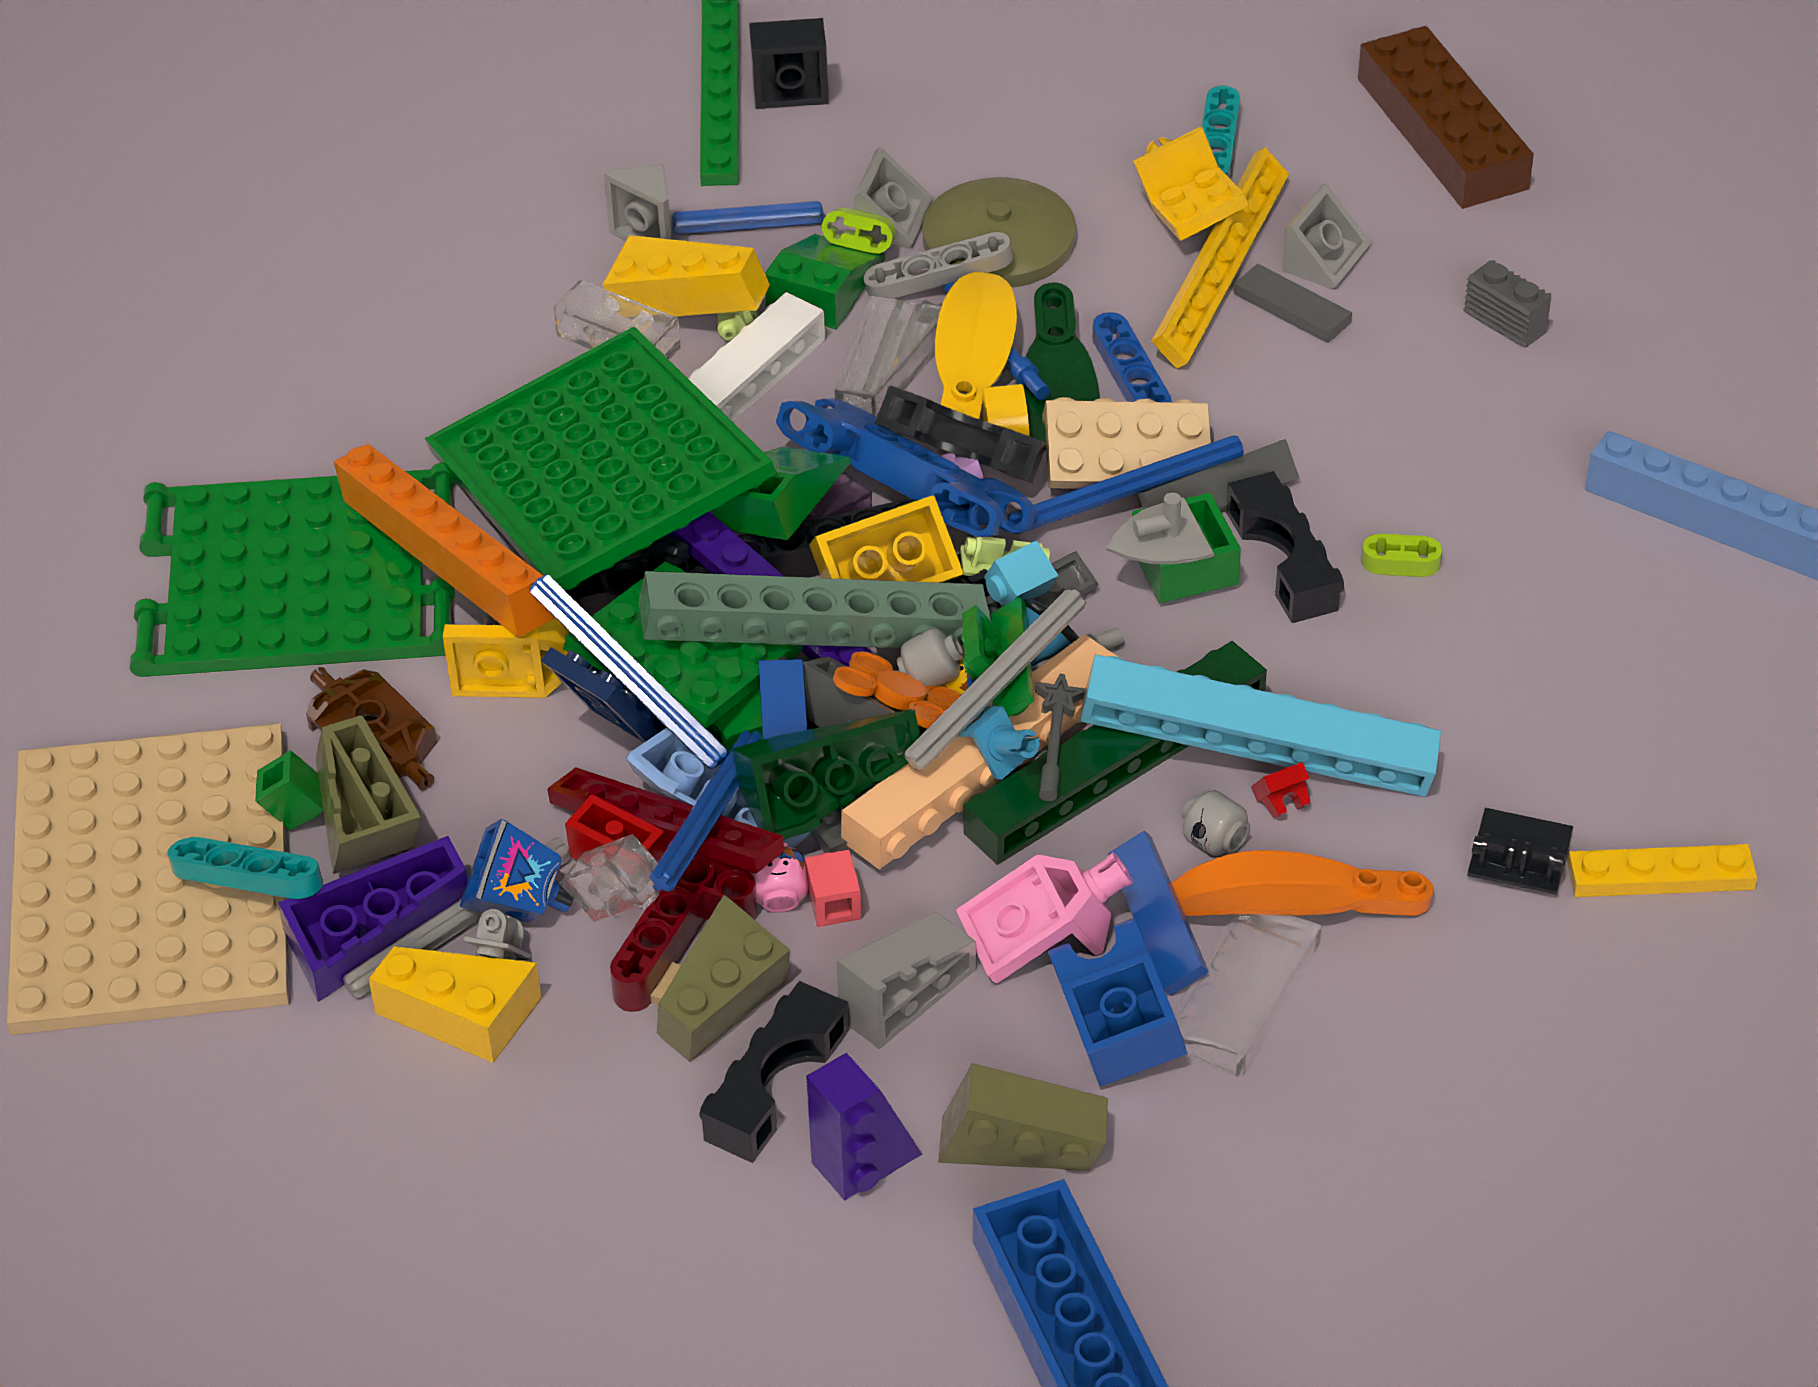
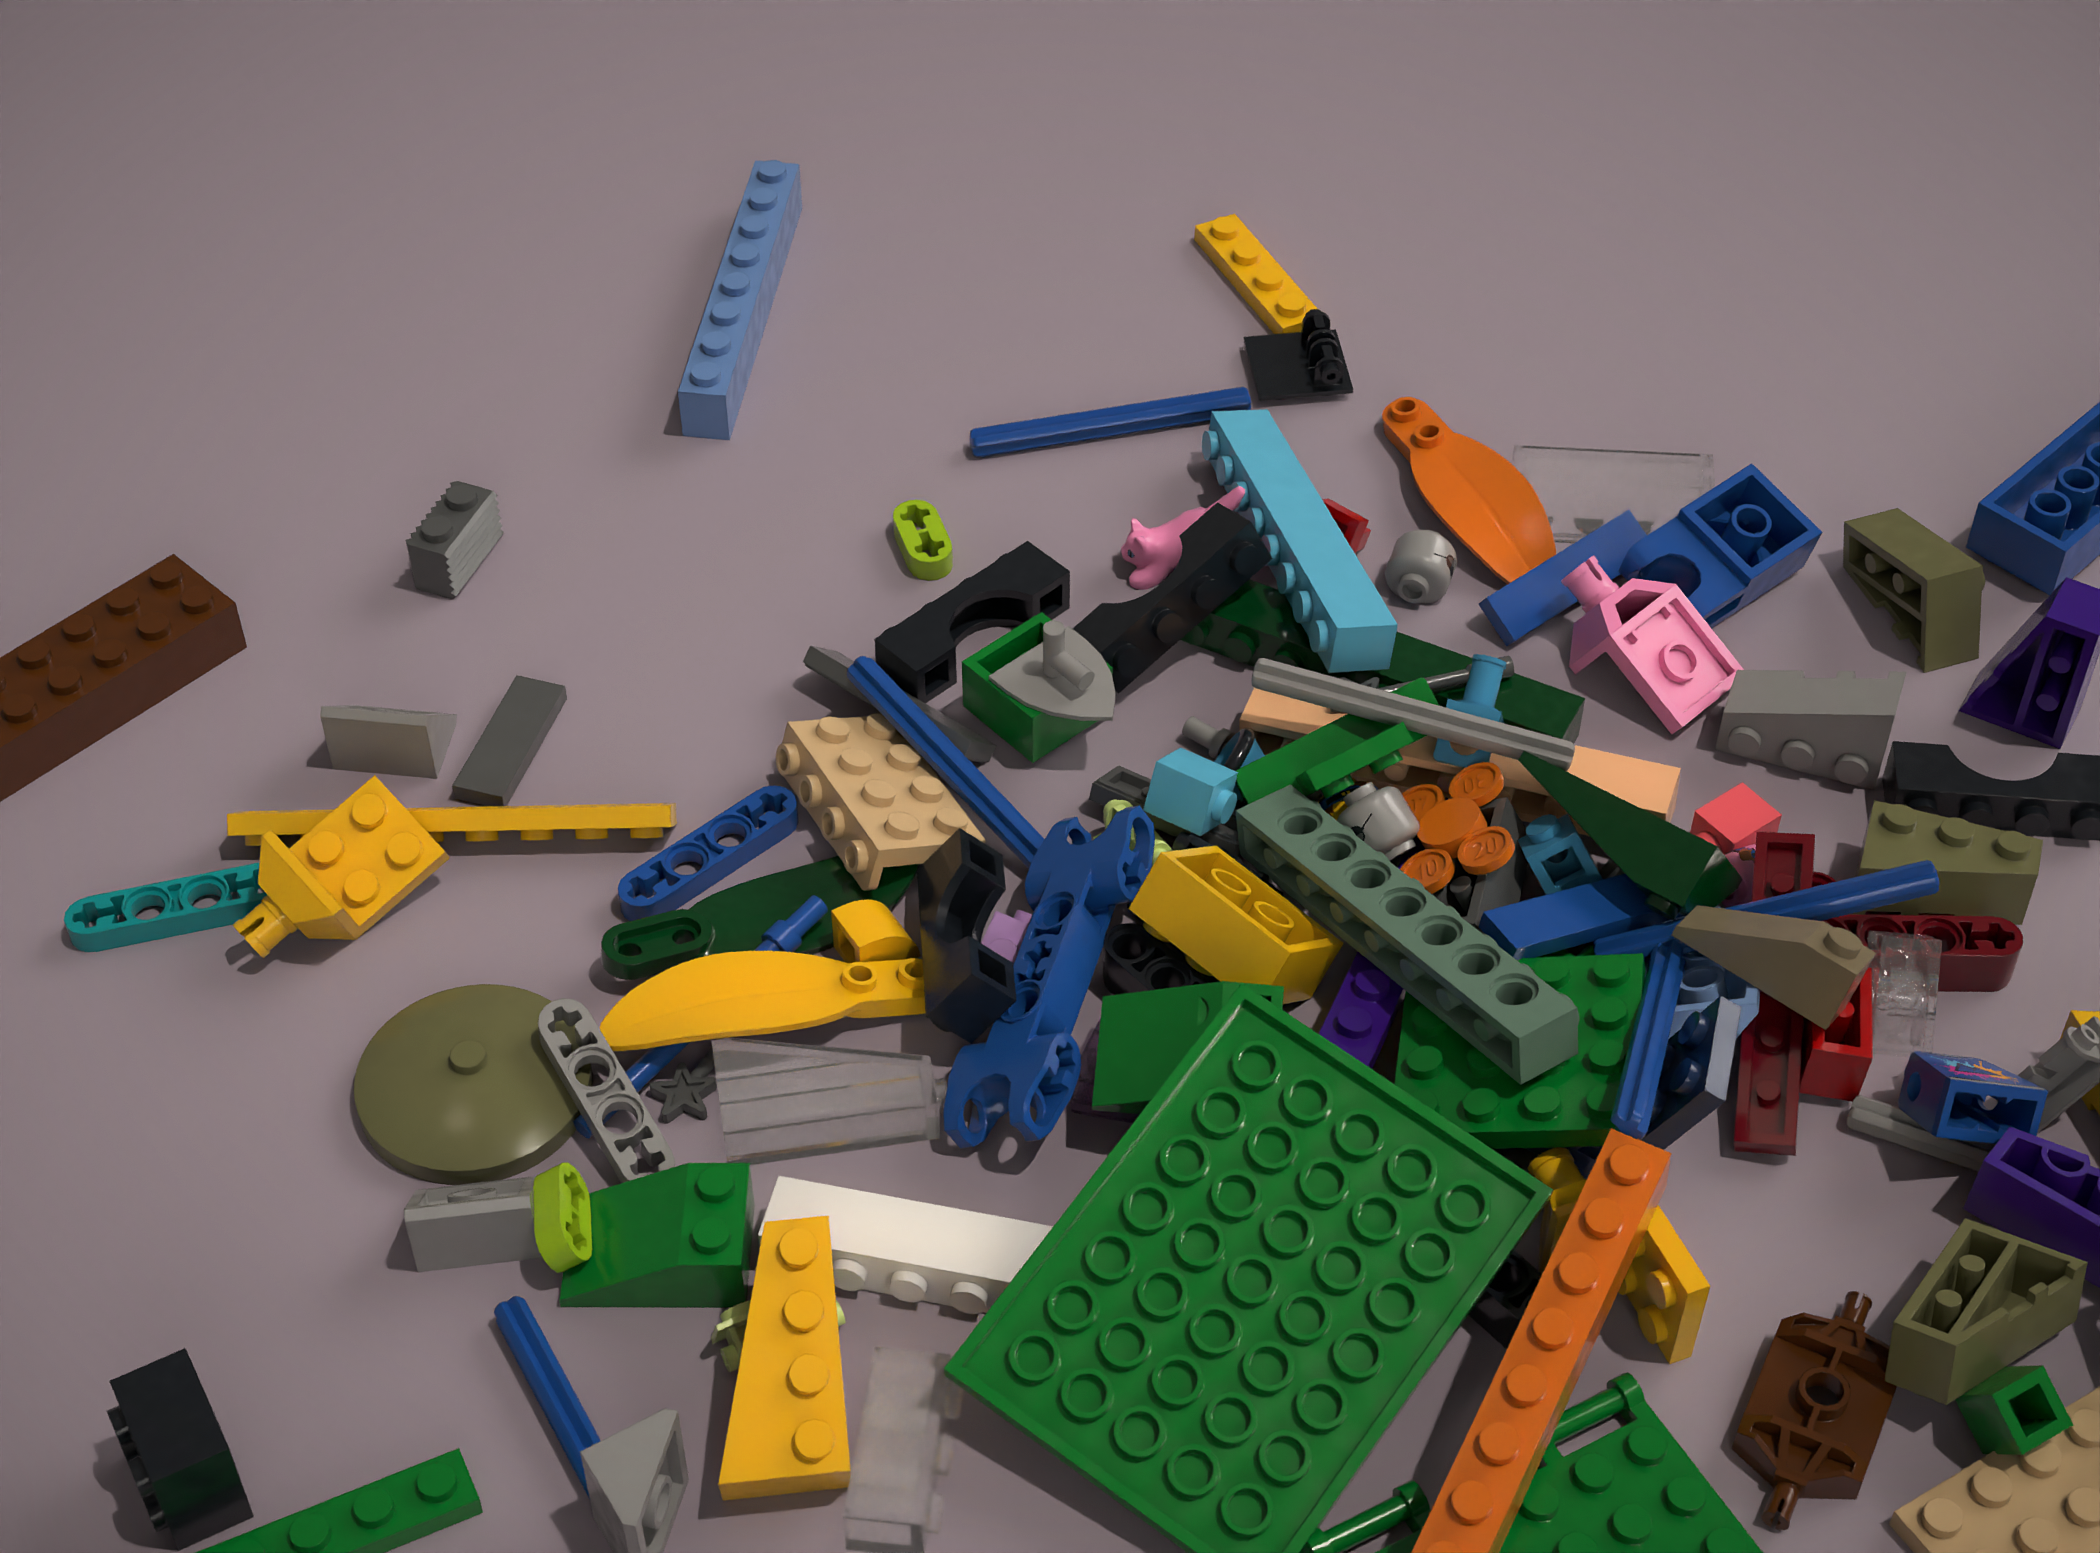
camera: 115 degrees left, 0 degrees up
(657, 775) = (1788, 958): none -> dark tan slope
(1230, 644) = (1215, 561): none -> black arch
(1316, 676) = (1160, 548): none -> bright pink animal
(1495, 708) = (1105, 422): none -> blue axle

